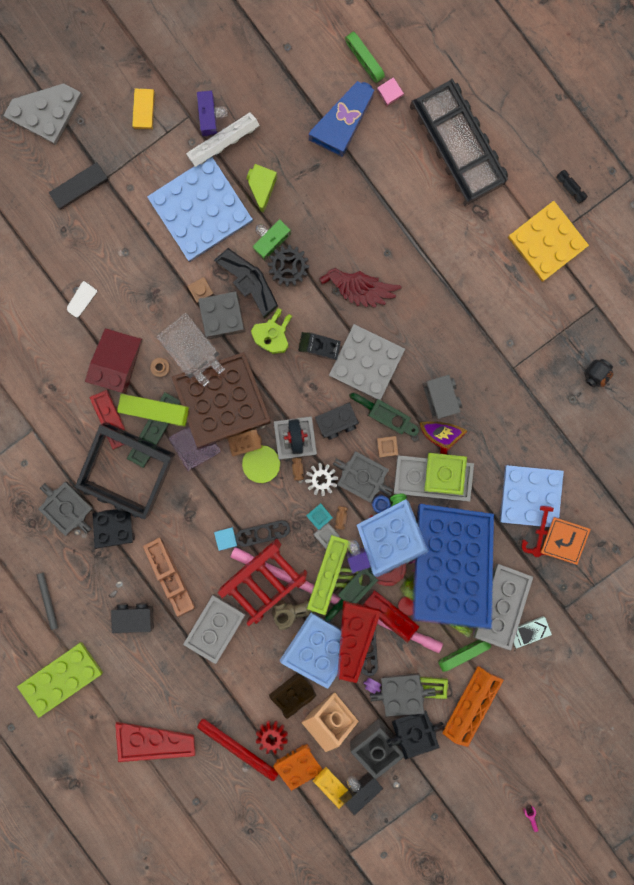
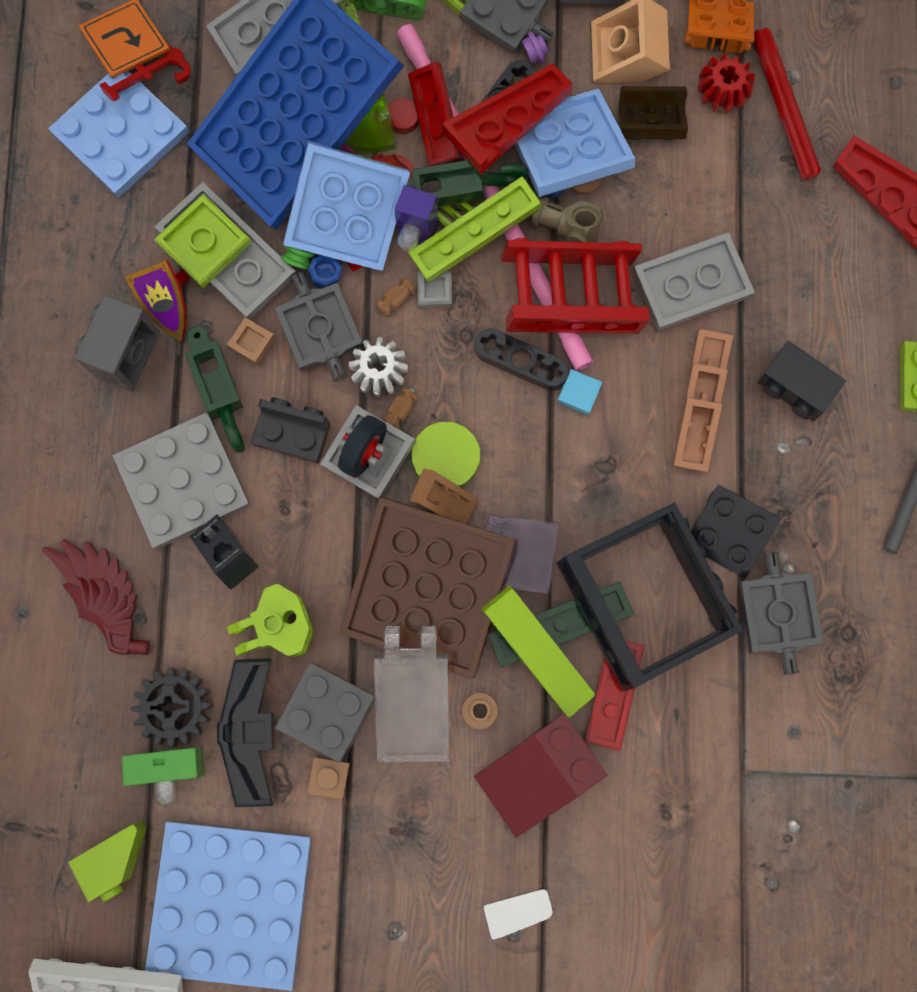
camera: 140 degrees left, 10 degrees down
(319, 516) = (423, 320): teal plate -> none

